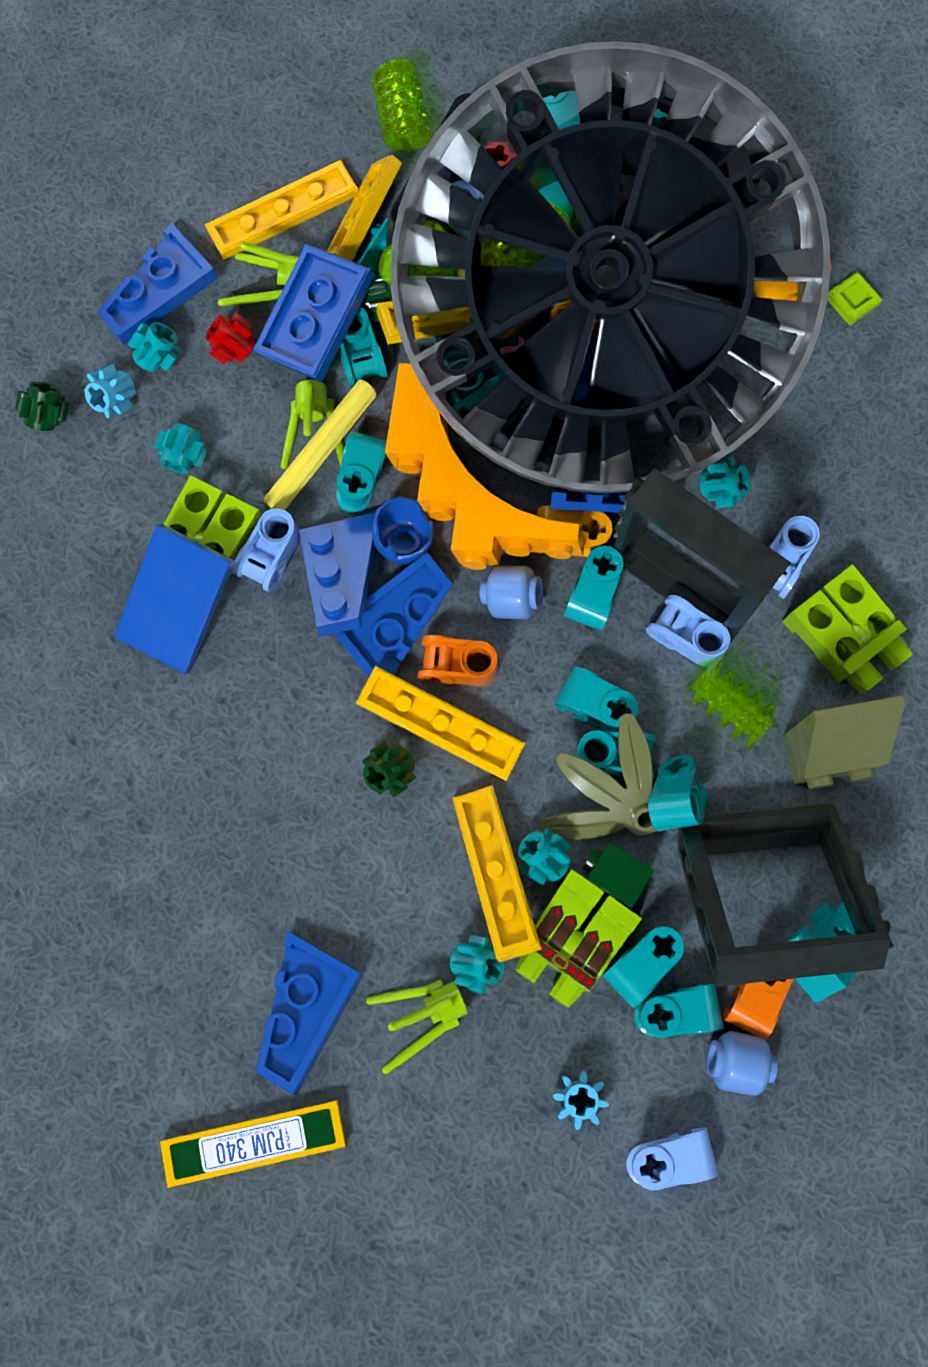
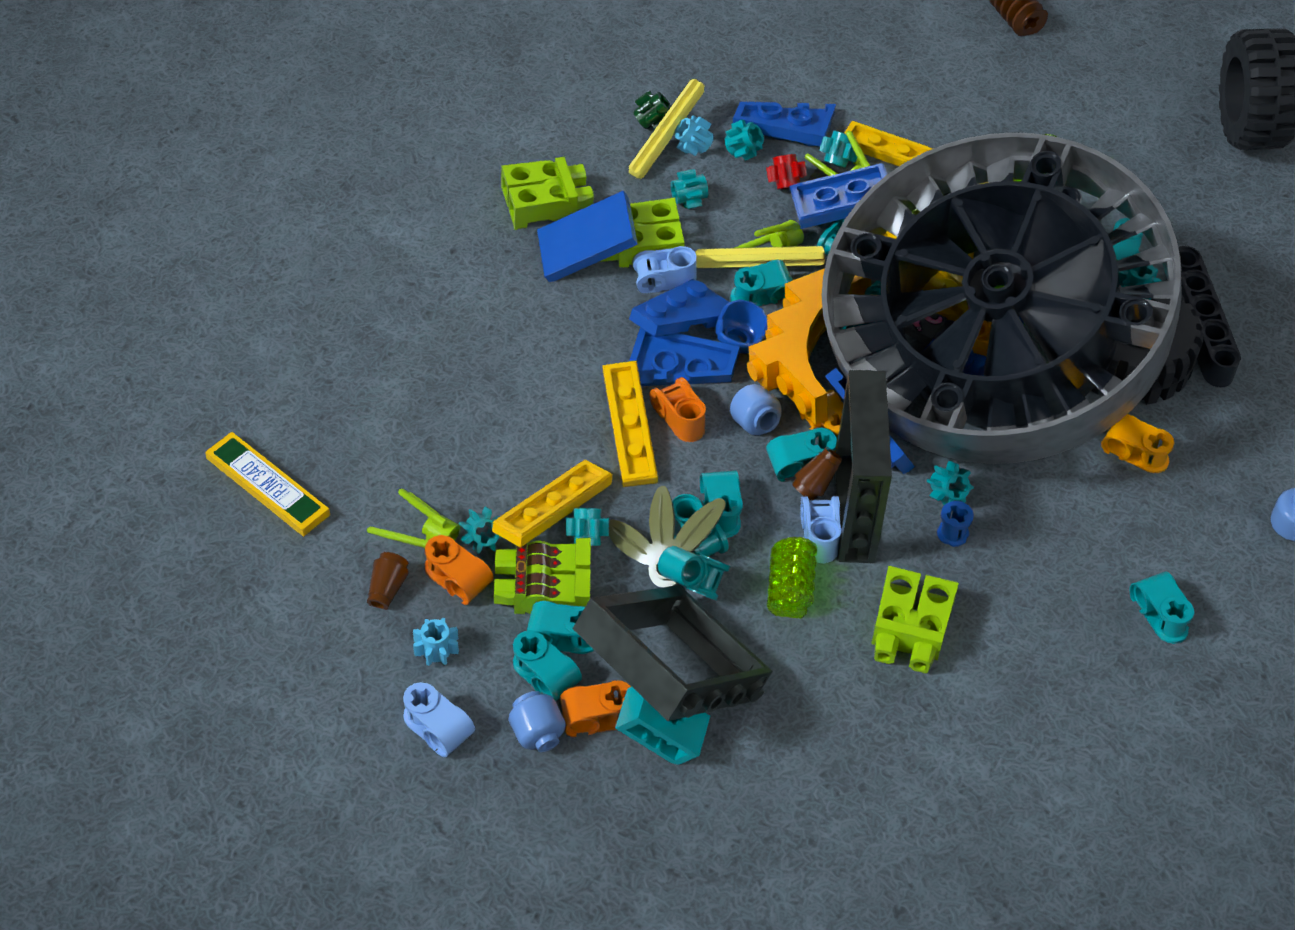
camera: 50 degrees right, 25 degrees down
(69, 595) = (544, 190): none -> lime hips
(80, 410) = (666, 129): none -> light yellow axle
(238, 267) = (838, 149): none -> teal gear
(305, 1010) = (380, 460): blue wing -> none
(388, 769) = (573, 410): dark green gear -> none
(468, 1099) = (386, 579): none -> reddish brown cone
(515, 1021) = (456, 568): none -> orange piece
(617, 874) = (609, 572): dark green brick -> none
(634, 596) = (817, 474): none -> reddish brown cone
(782, 508) = (960, 520): none -> blue bush
(795, 554) = (933, 550): light blue piece -> none
(843, 742) = (820, 638): olive slope -> none
(854, 298) = (1170, 493): lime tile -> none

